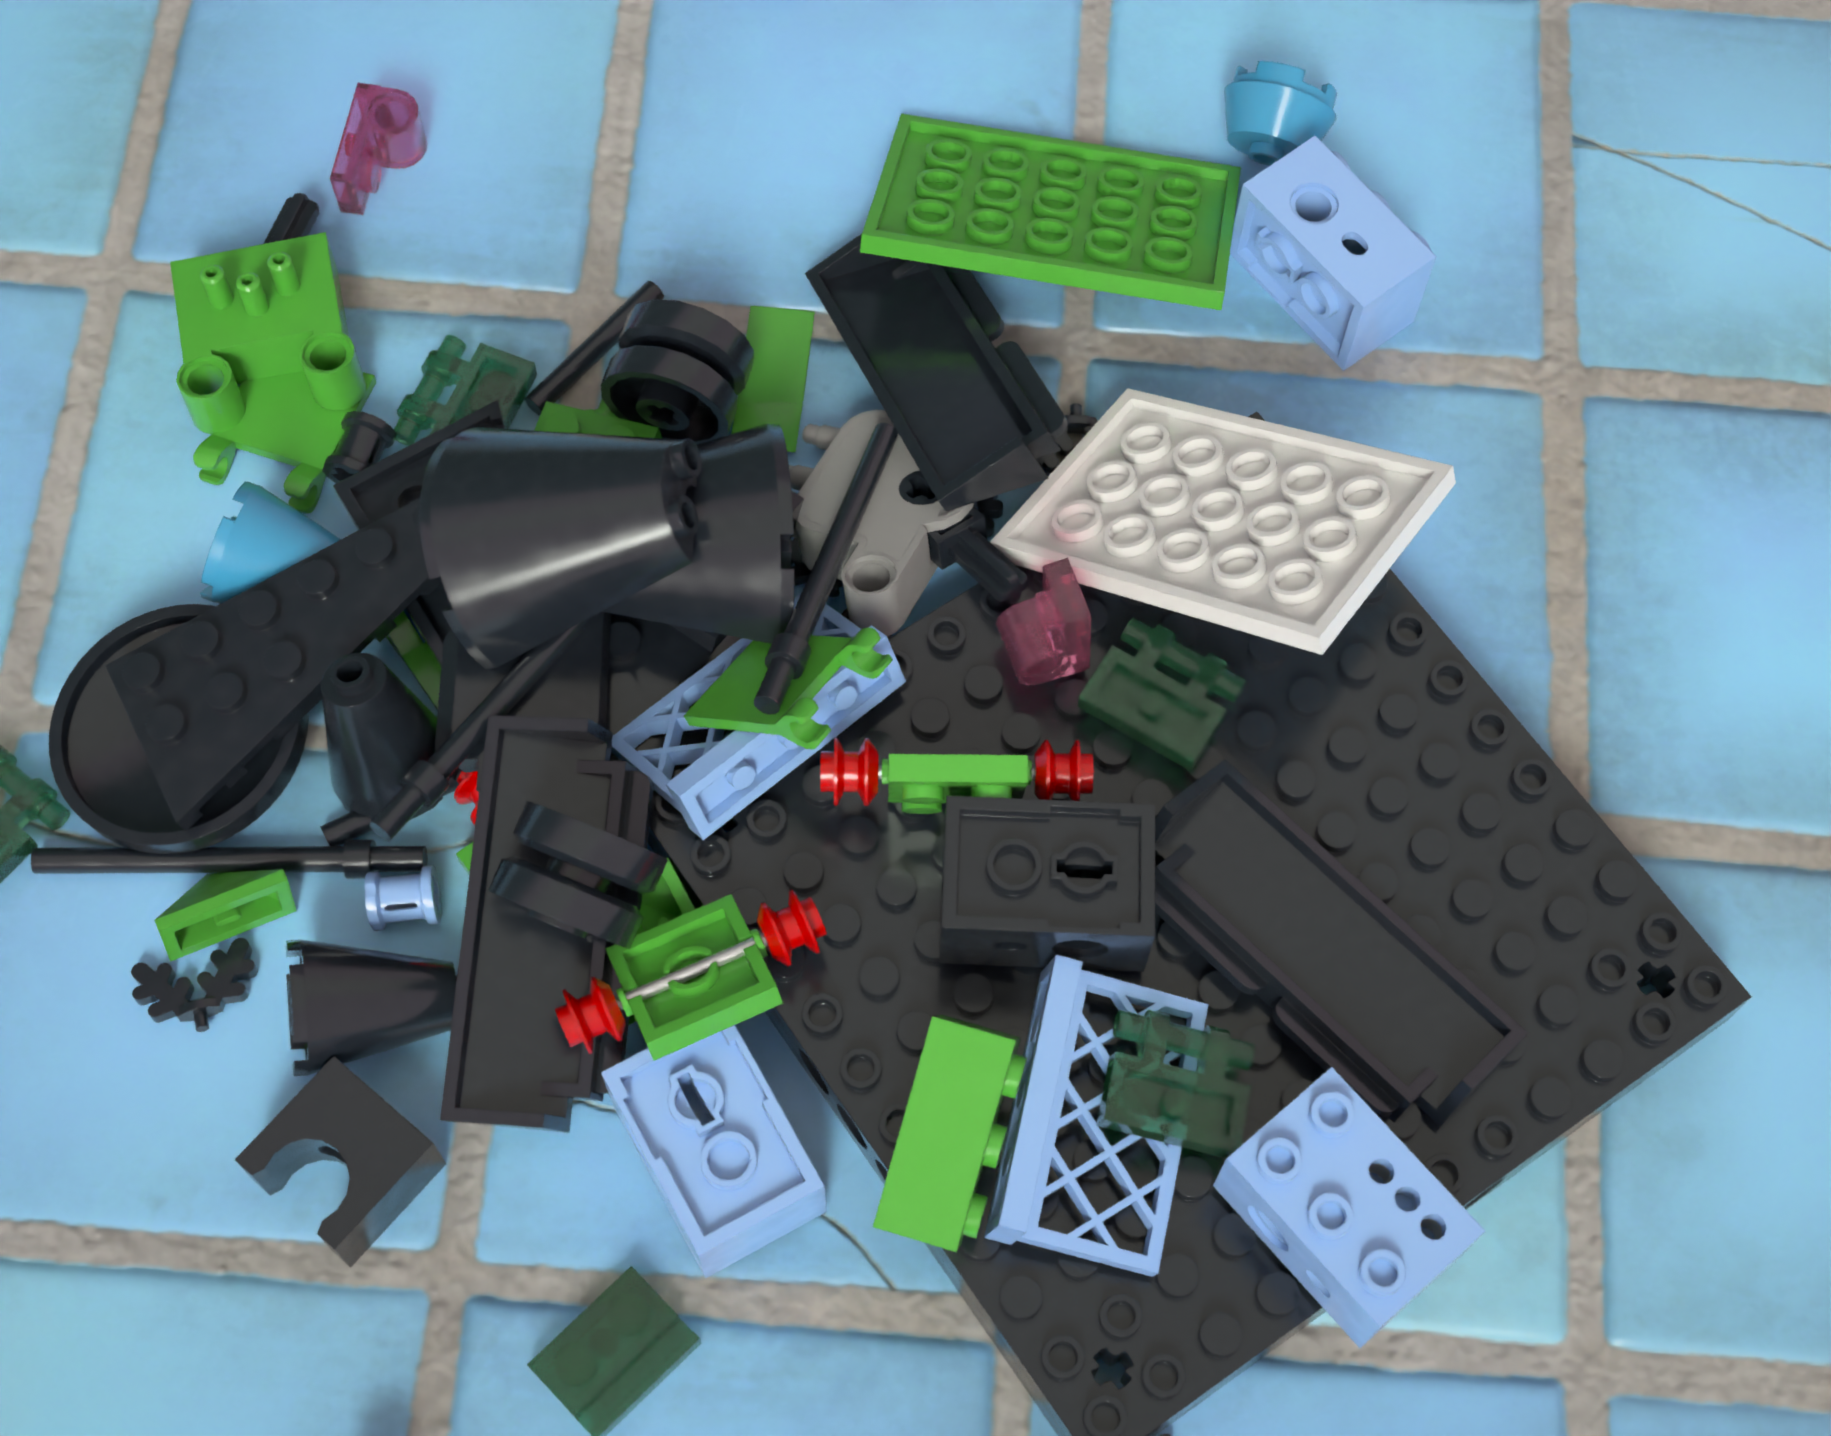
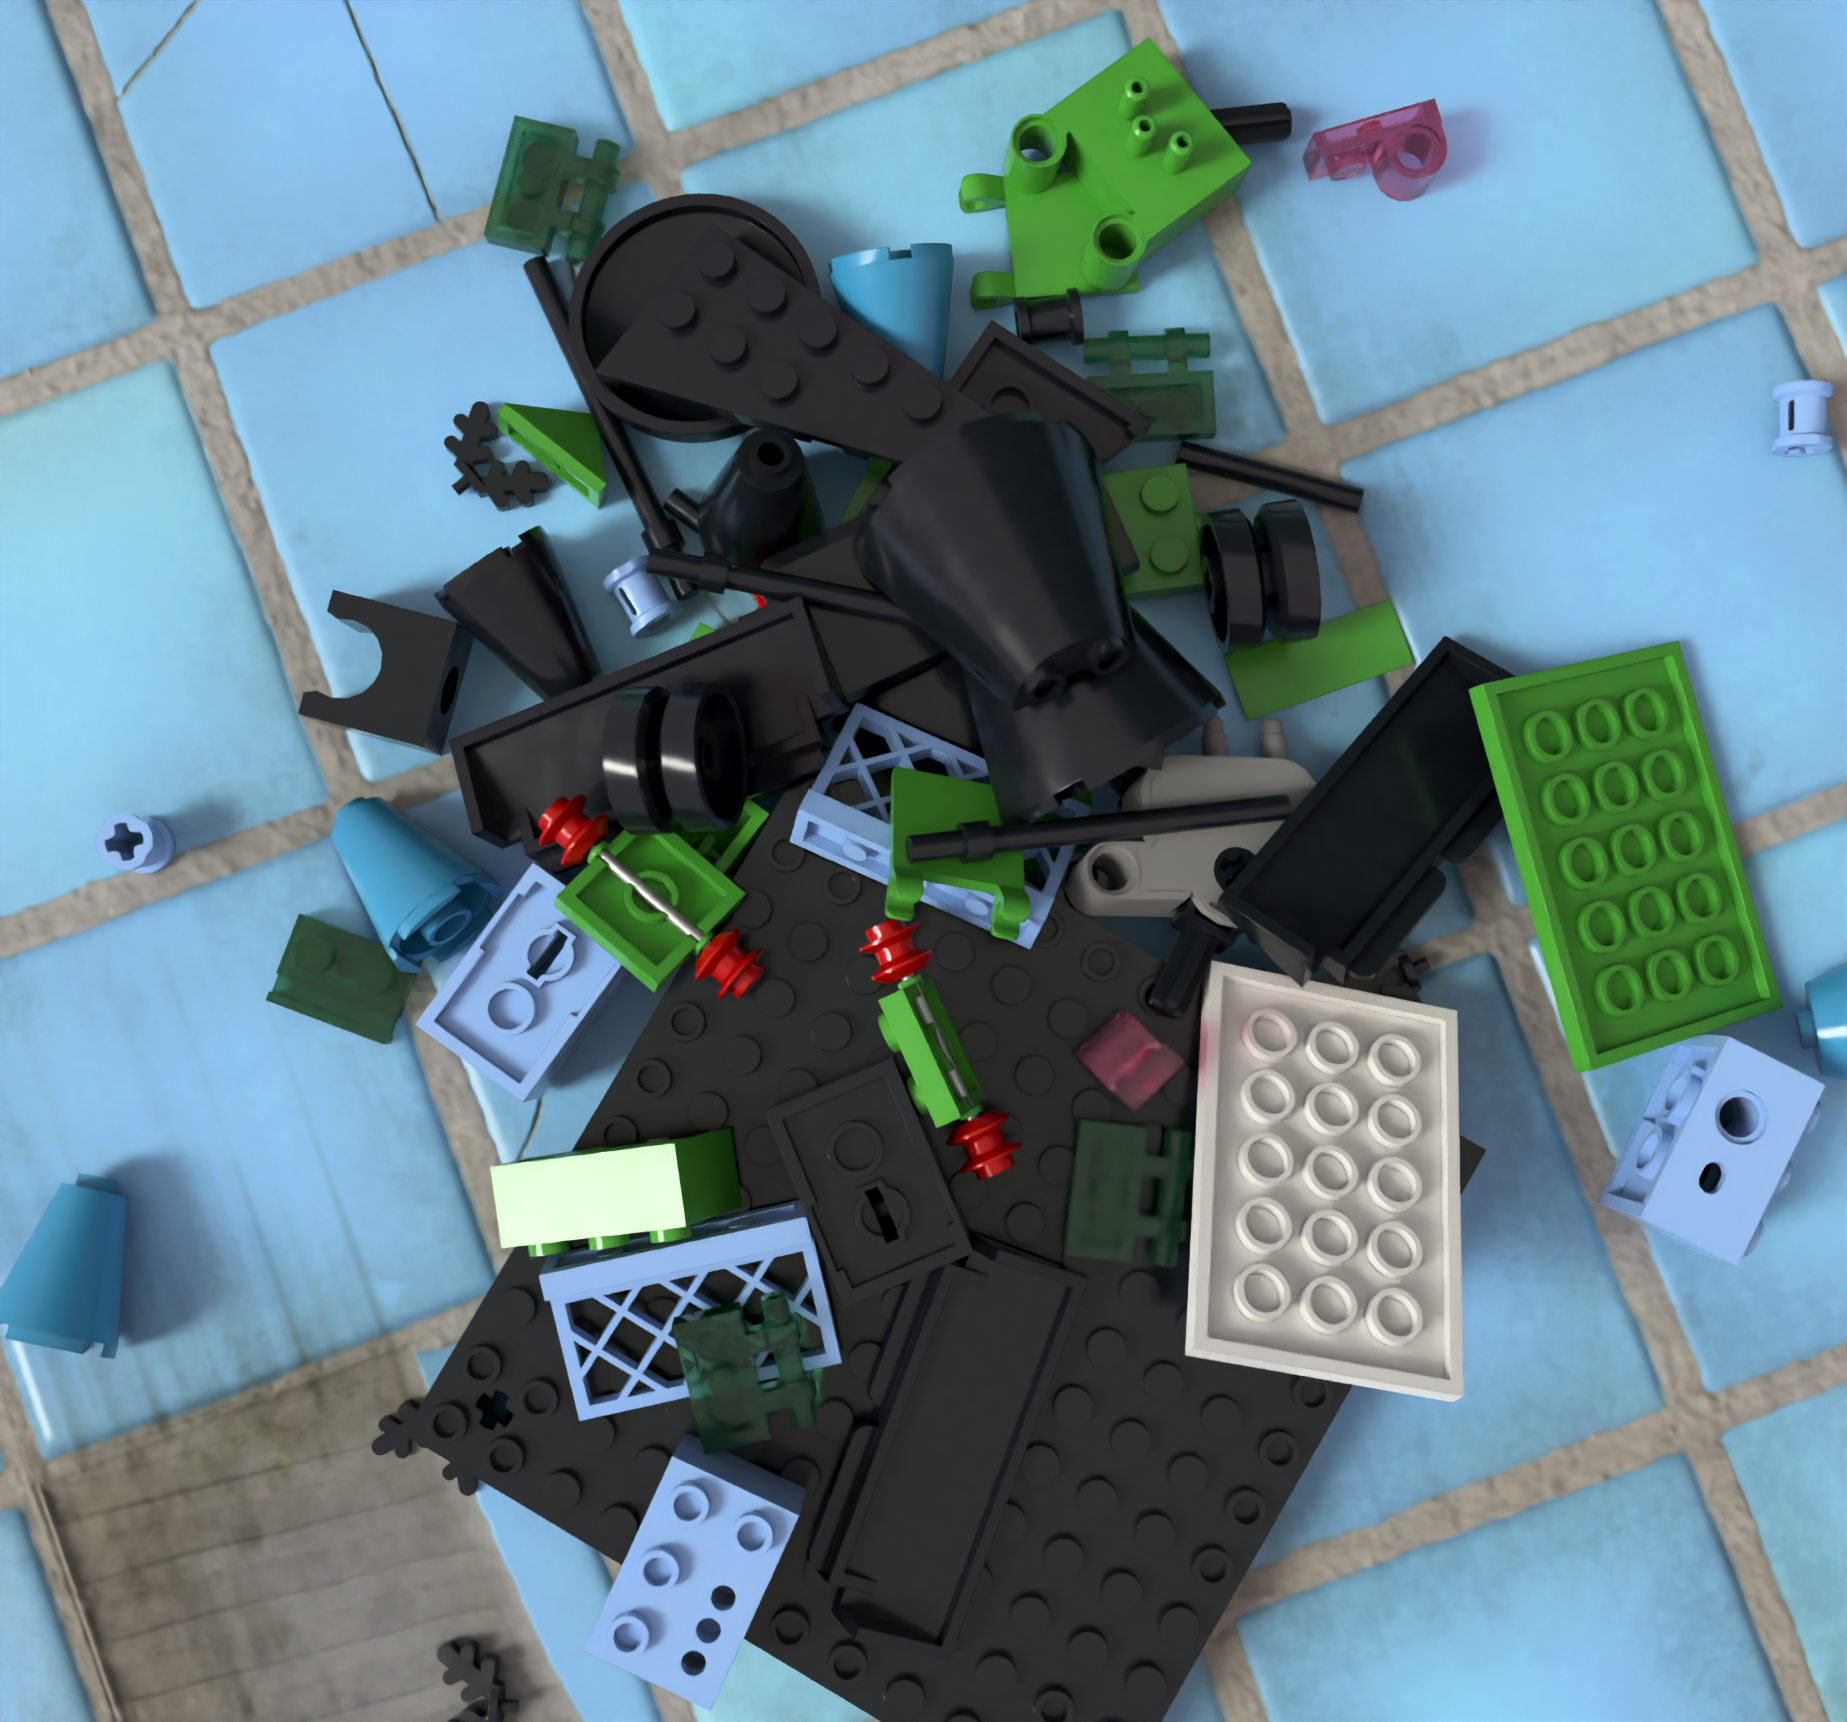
camera: 70 degrees right, 20 degrees up
(553, 1228) = (411, 883): none -> dark azure cone

